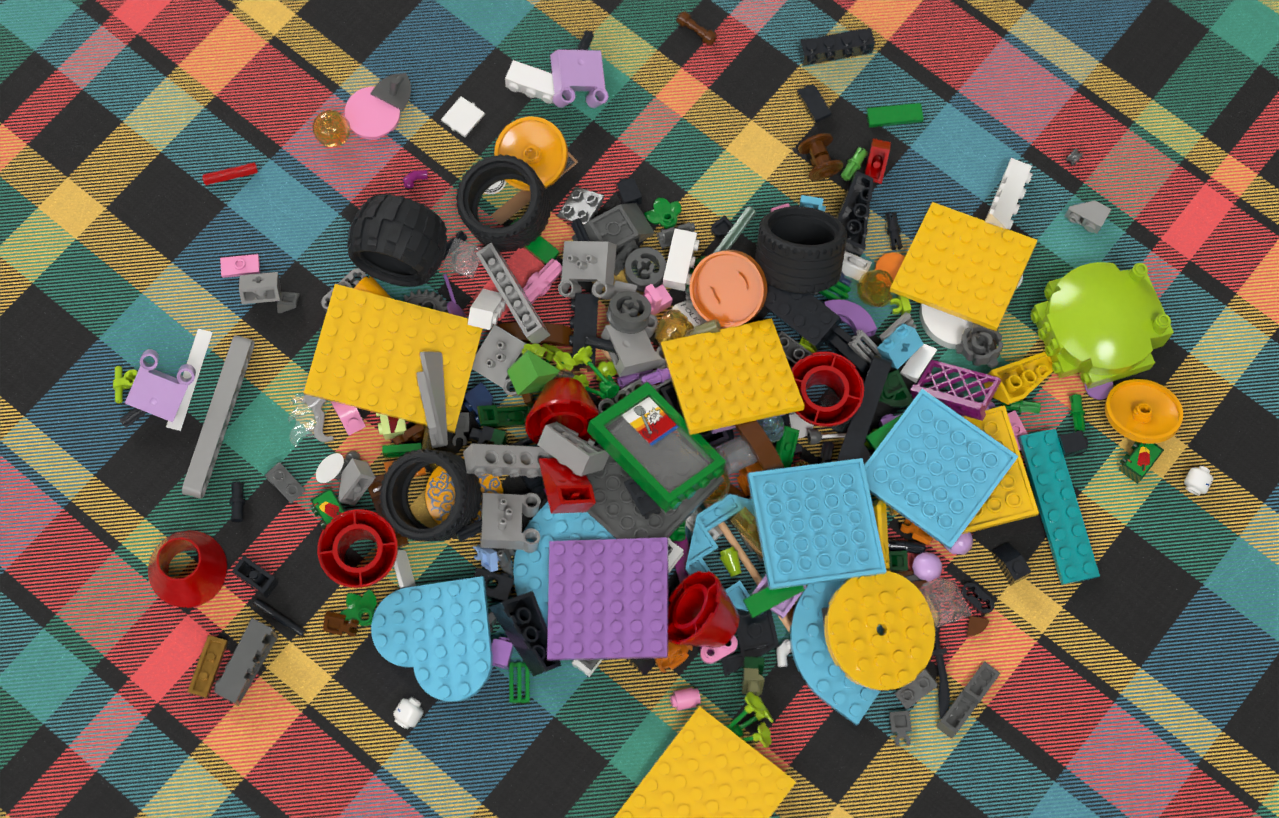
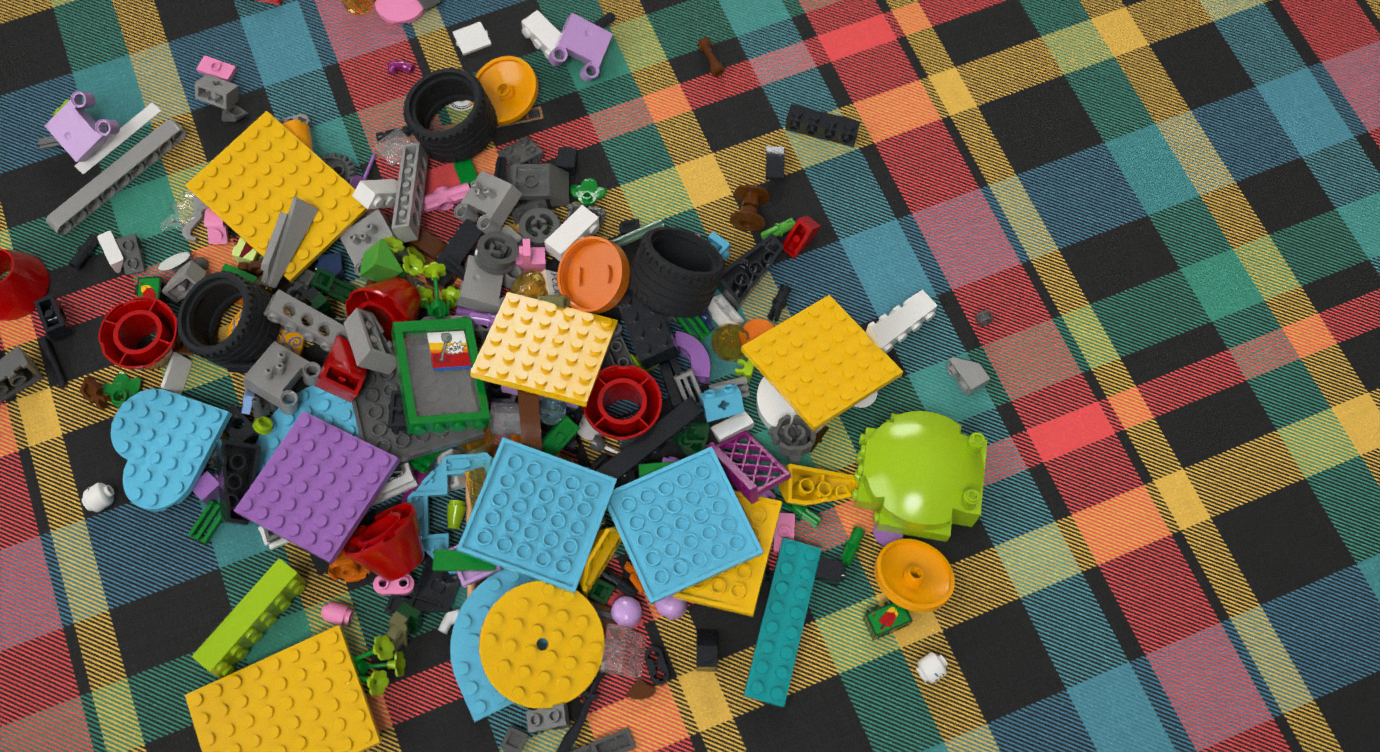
camera: 30 degrees right, 5 degrees down
(265, 488) = (111, 250): none -> white slope
(397, 240) = (340, 101): black tyre -> none
(518, 573) = (263, 425): none -> lime plate
(617, 744) = (250, 619): none -> lime brick
(894, 115) = (841, 206): green tile -> none

